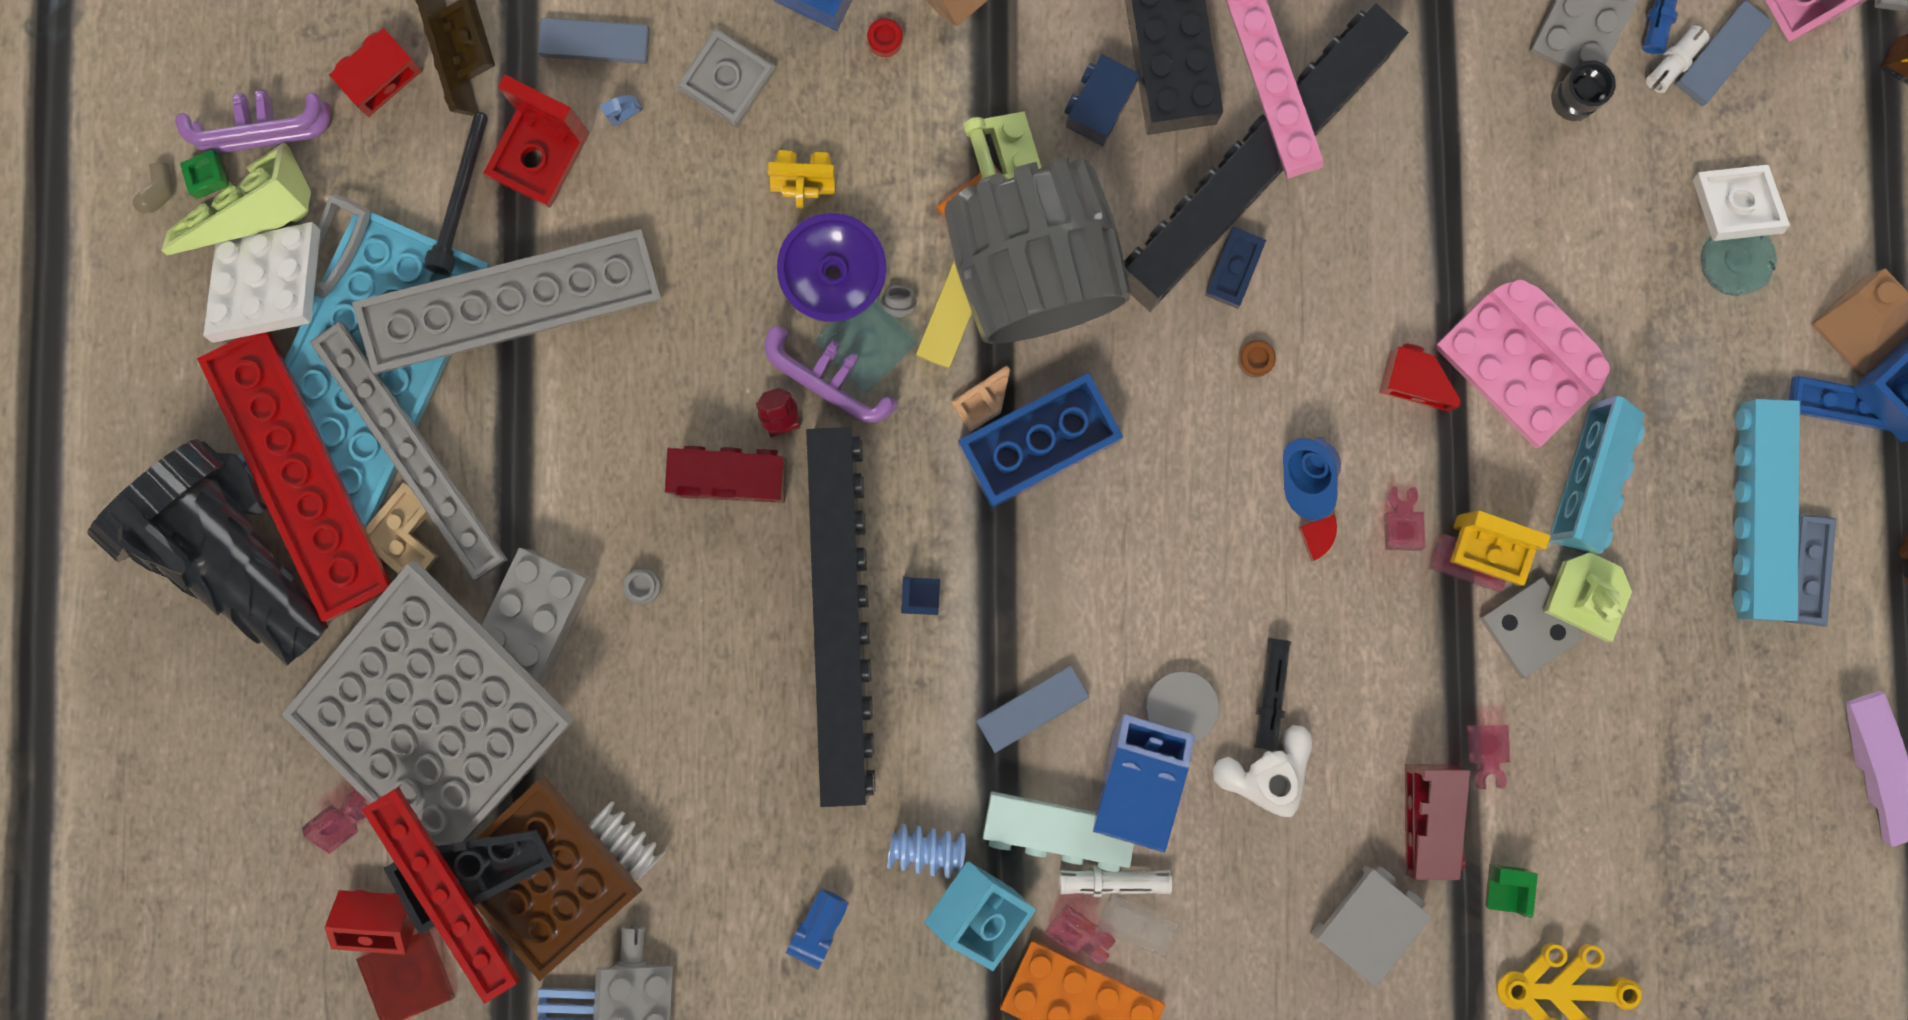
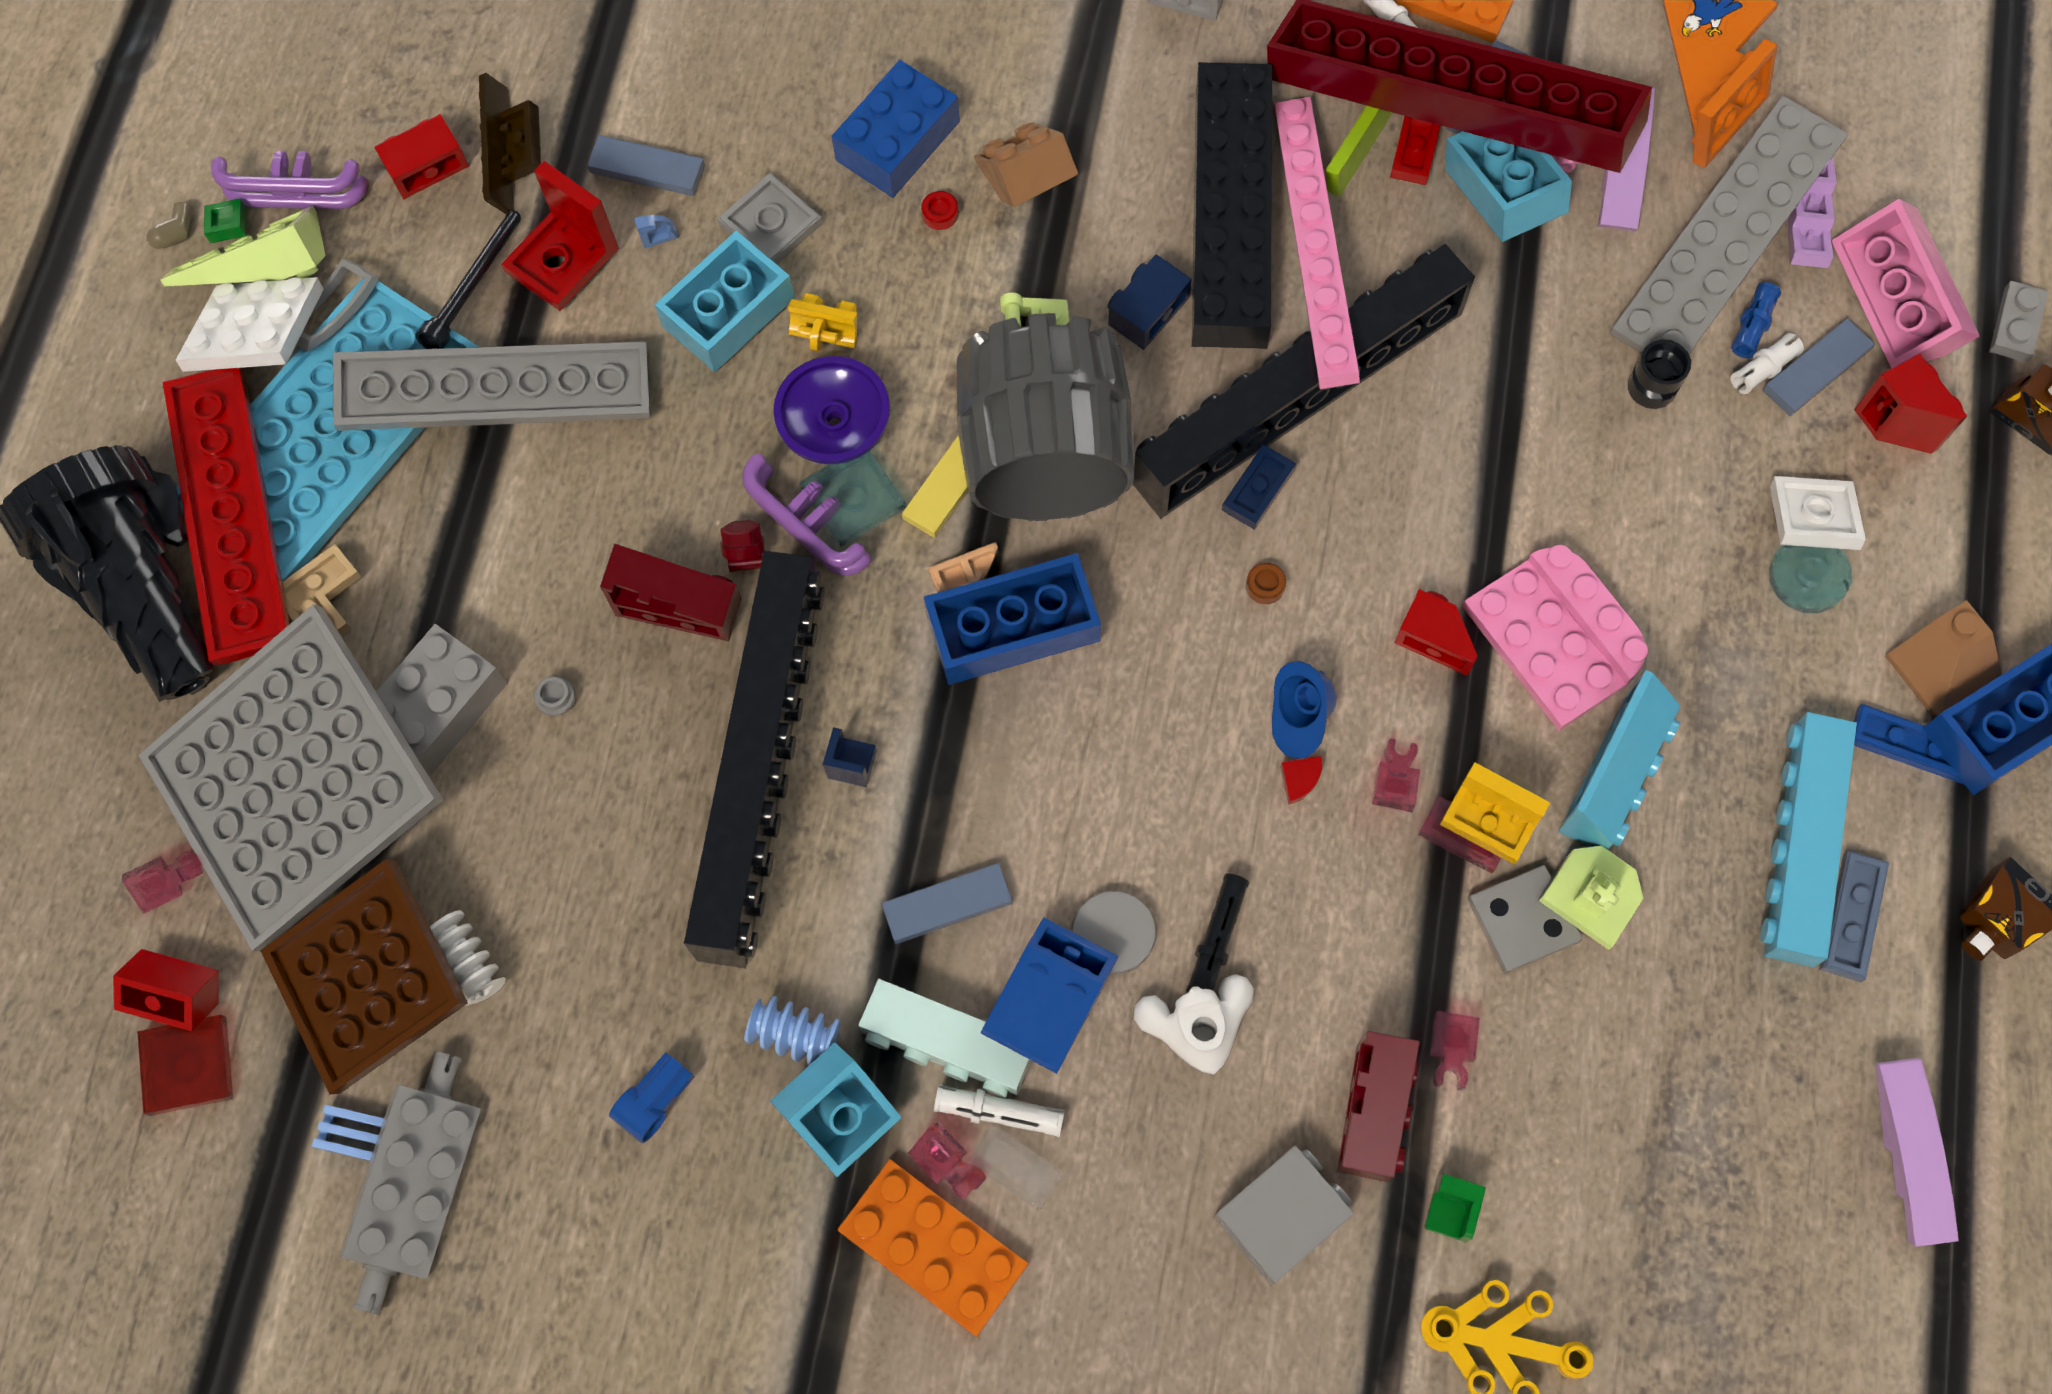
camera: 15 degrees right, 15 degrees down
(408, 451) = (350, 515): light grey tile -> none
(441, 895) = (248, 960): red plate -> none
(481, 867) = (269, 952): black wedge -> none
(706, 174) = (725, 301): none -> medium azure brick
(899, 301) = (895, 458): light grey plate -> none
(1817, 85) = (1911, 407): none -> red slope

